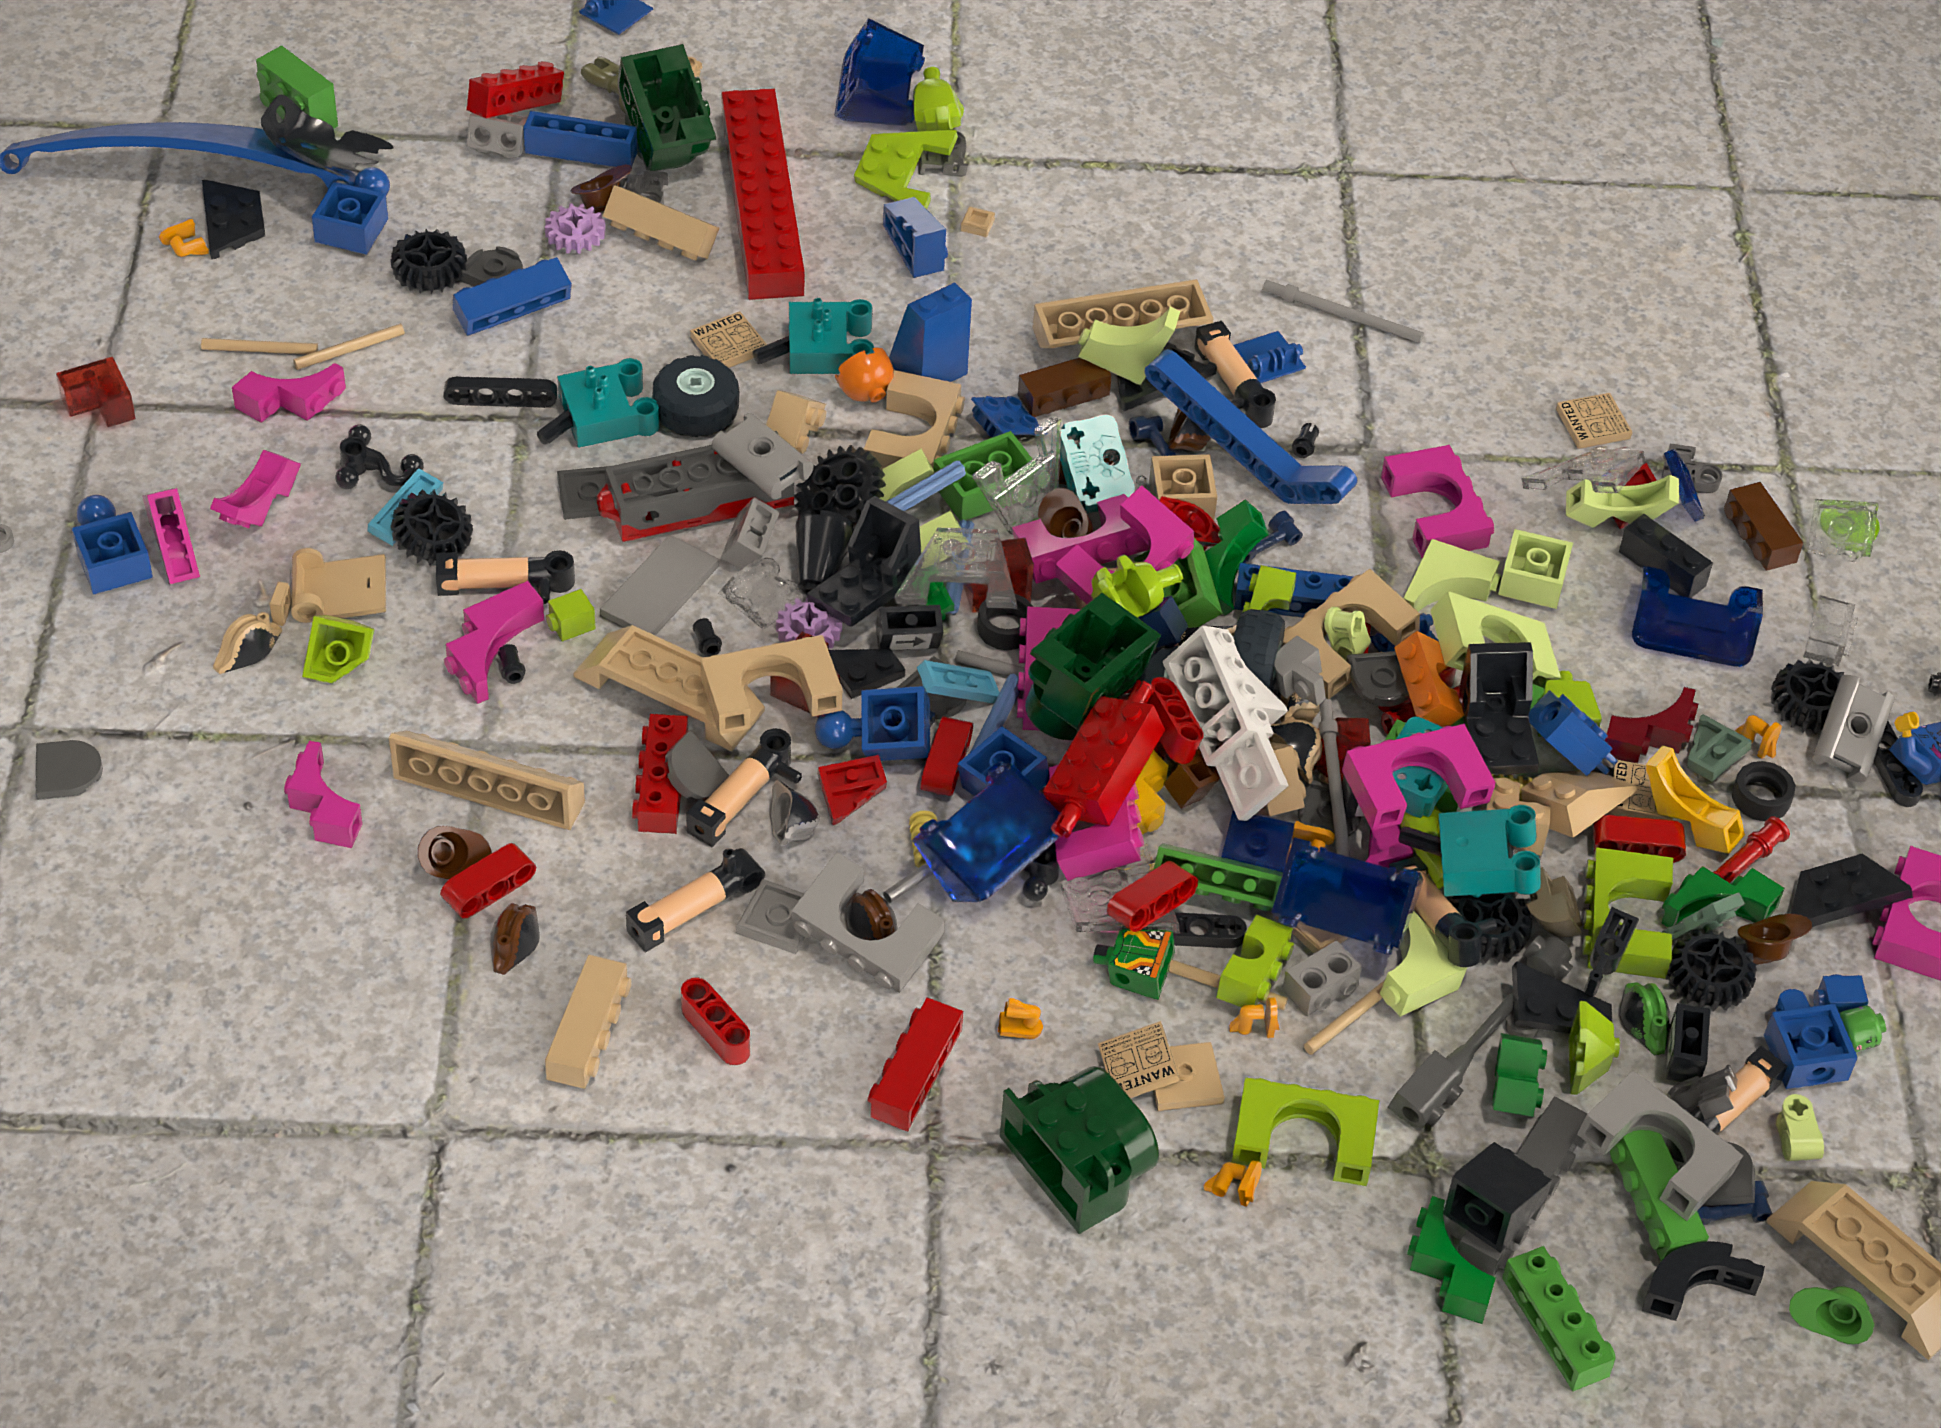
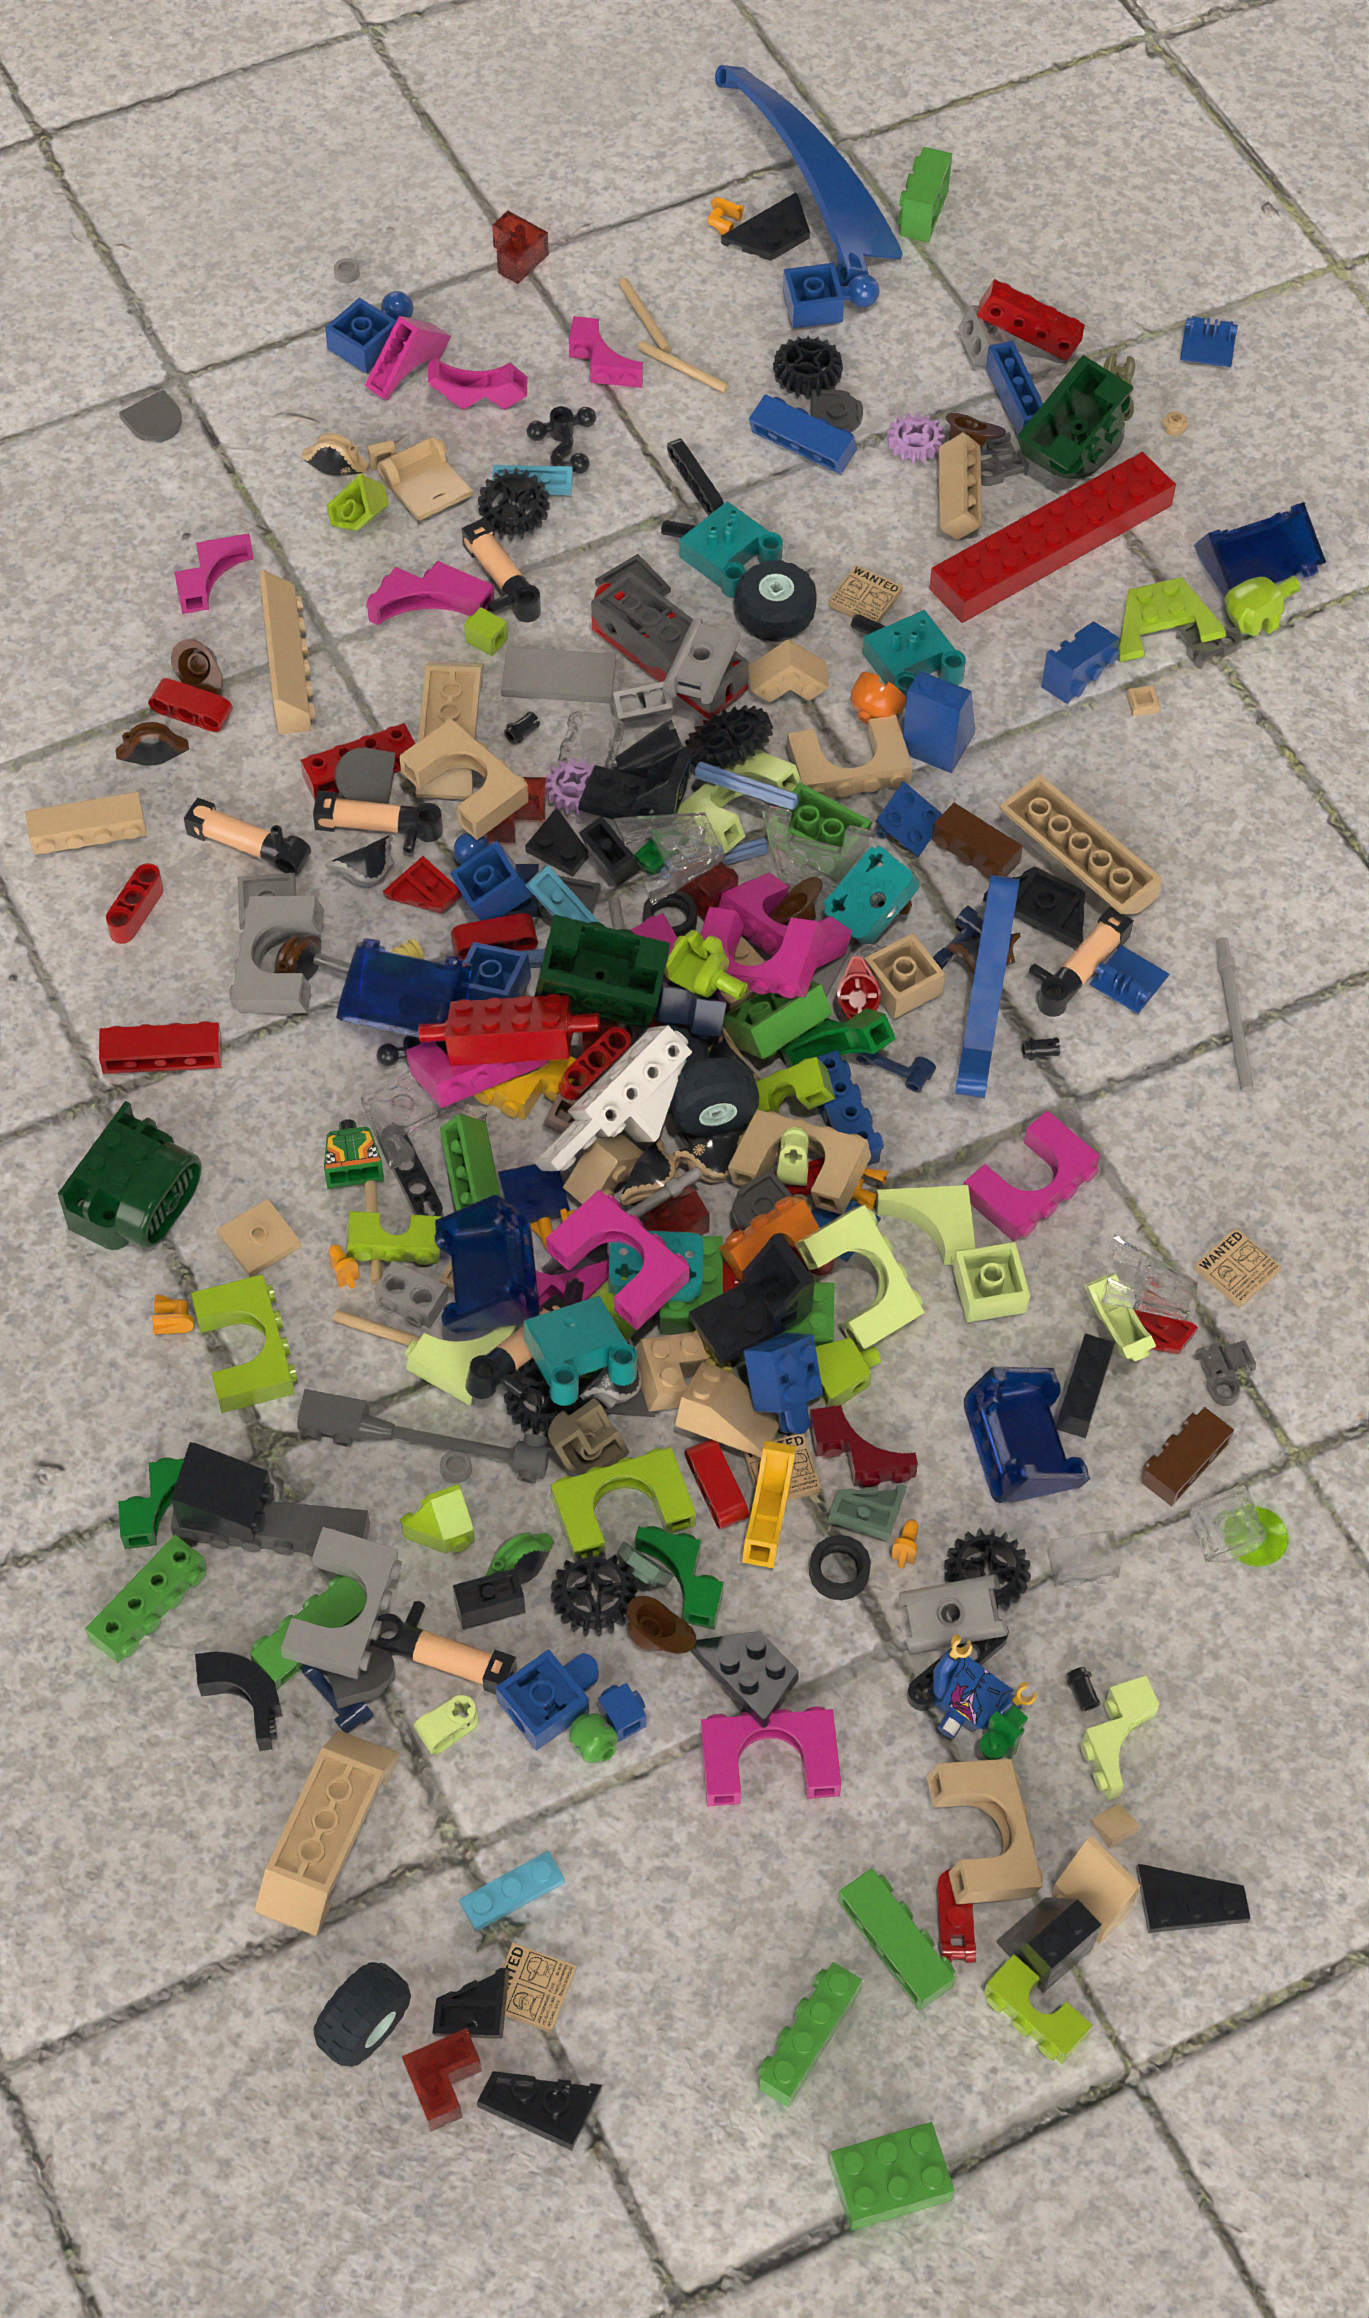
camera: 65 degrees right, 10 degrees up
(302, 128) = (879, 212): black piece -> none
(512, 669) = (408, 623): black pin -> none
(1020, 1020) = (246, 1101): light orange piece -> none
(1127, 348) = (1025, 855): yellowish green arch -> none
(1140, 1060) = (248, 1197): tan tile -> none
(1152, 896) = (404, 1130): red beam -> none
(1298, 671) = (712, 1129): light grey brick -> none
(1517, 1073) = (377, 1482): green brick -> none
(1548, 1002) = (479, 1473): black wing -> none
(1611, 944) = (558, 1492): black piece -> none
(1686, 486) = (1176, 1363): clear blue plate -> none
(1707, 1092) = (438, 1624): flat silver piece -> none
(1758, 845) = (768, 1584): red pin -> none
(1833, 1313) = (262, 1815): bright green piece -> none

